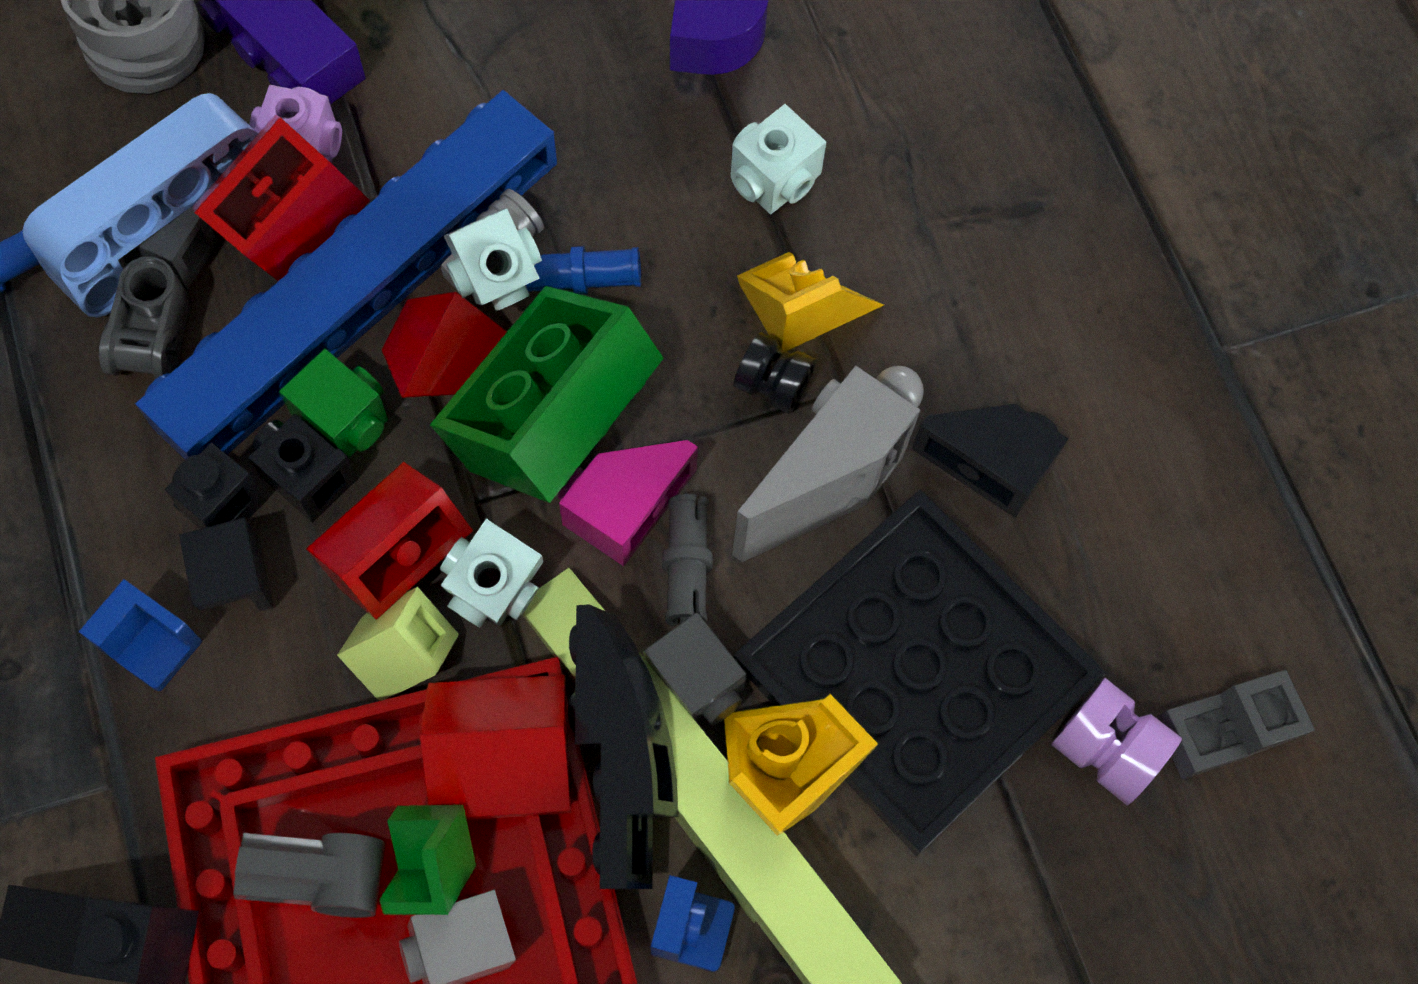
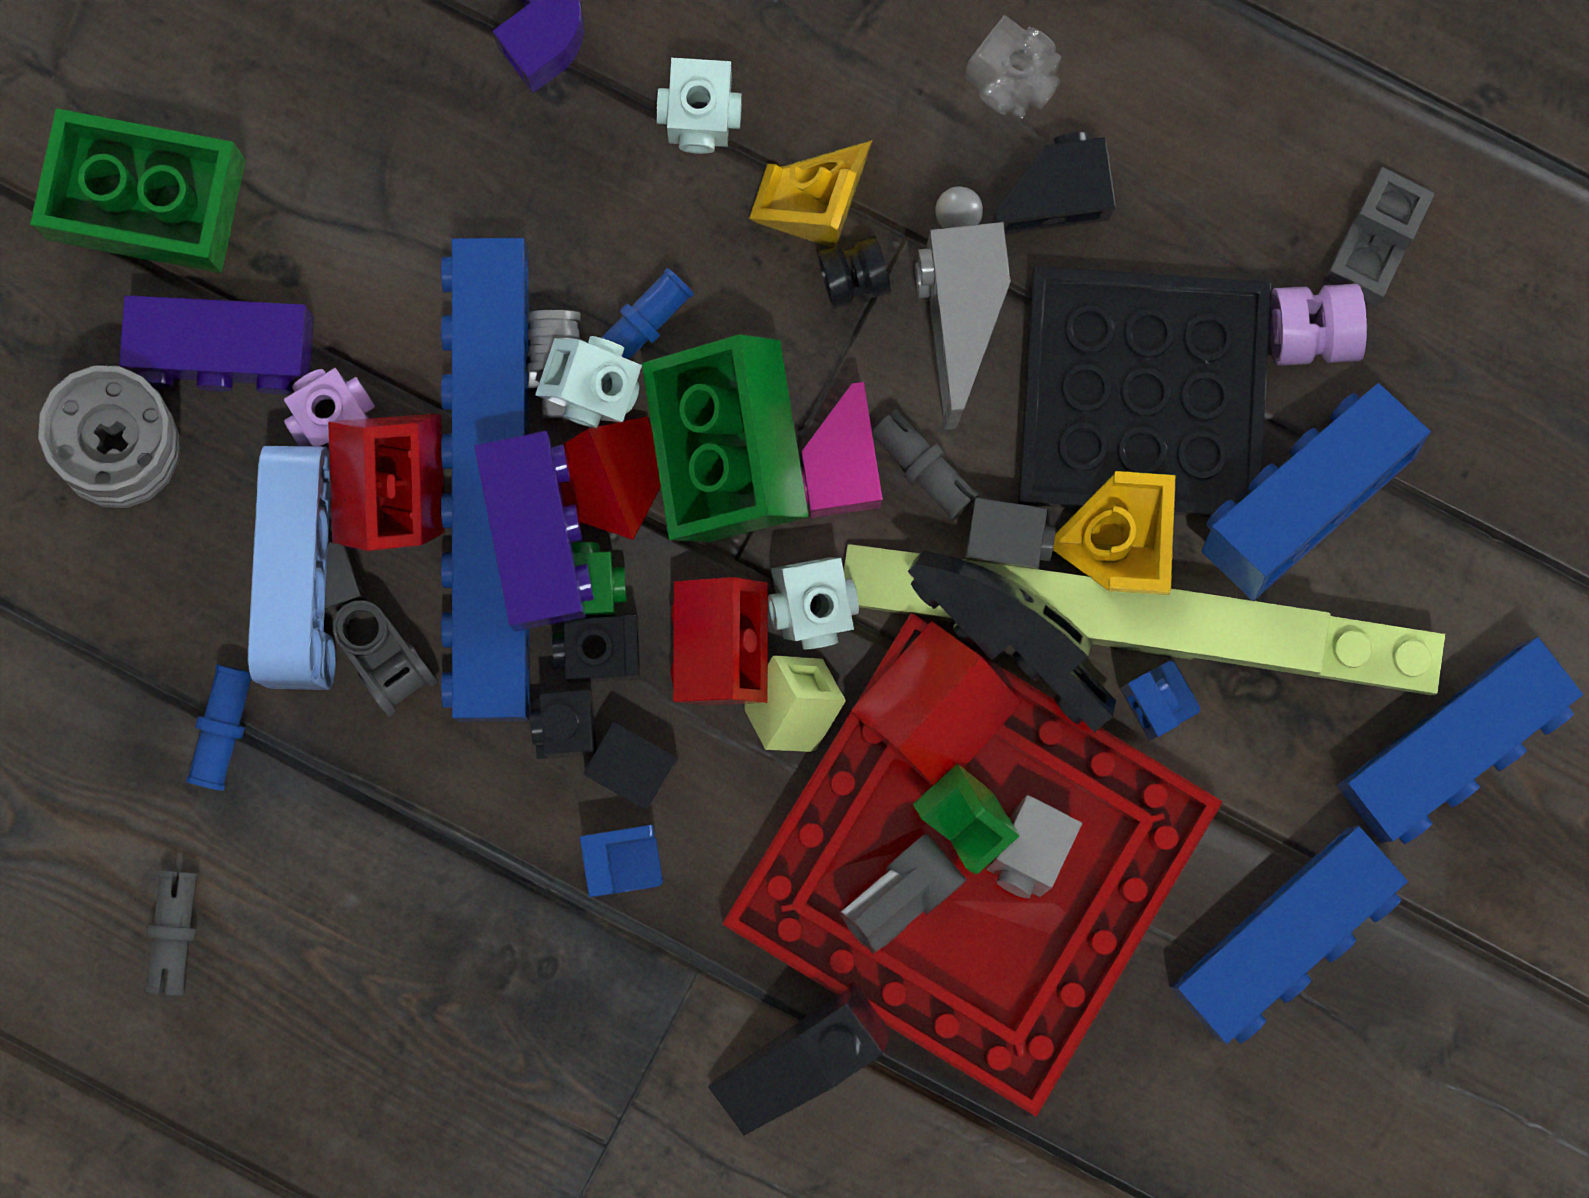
camera: 45 degrees left, 15 degrees up
(330, 318) = (533, 530): none -> dark purple brick
(987, 869) = (1313, 490): none -> blue brick
(1042, 334) = (1014, 68): none -> clear brick

